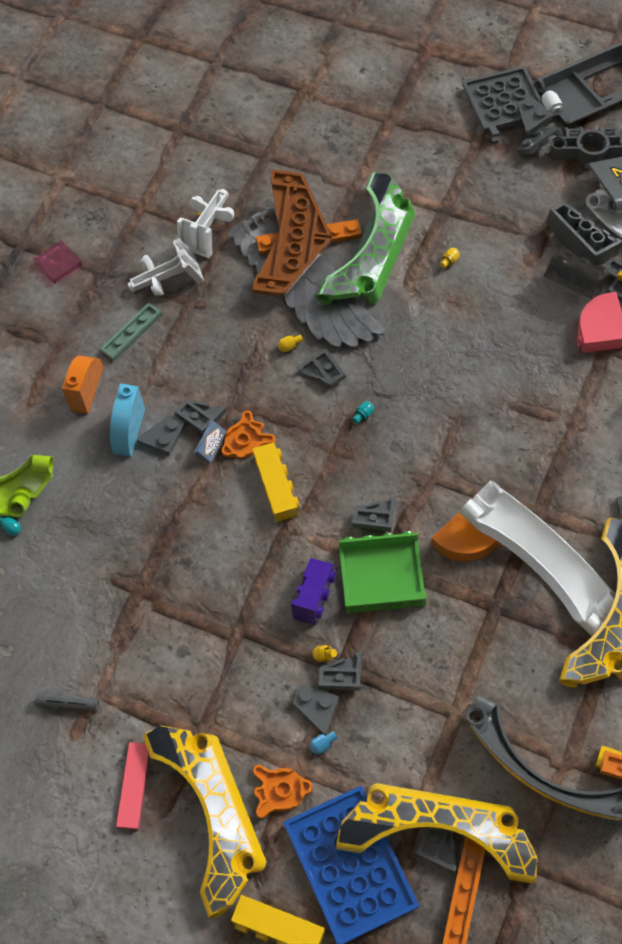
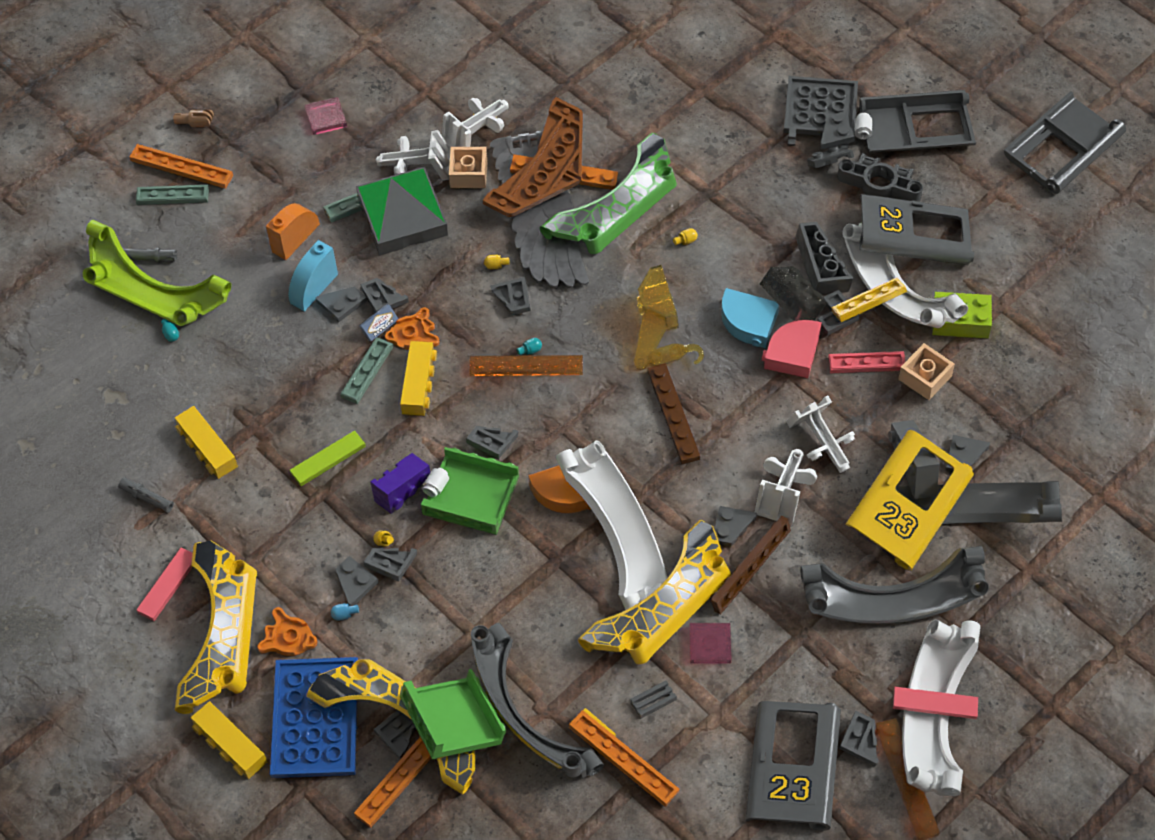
camera: 20 degrees right, 5 degrees down
(101, 624) = (206, 442): none -> yellow brick
(178, 326) = (402, 210): none -> dark grey tile
(220, 263) = (468, 167): none -> light nougat brick
(221, 492) = (366, 370): none -> sand green tile
(227, 594) = (327, 458): none -> lime tile
(347, 578) = (435, 482): none -> white brick
(368, 431) = (526, 365): none -> clear orange plate
(468, 335) = (658, 316): none -> clear yellow slope
(493, 810) = (453, 716): none -> bright green panel
(527, 426) = (673, 414): none -> reddish brown plate
(546, 310) = (748, 317): none -> medium azure brick

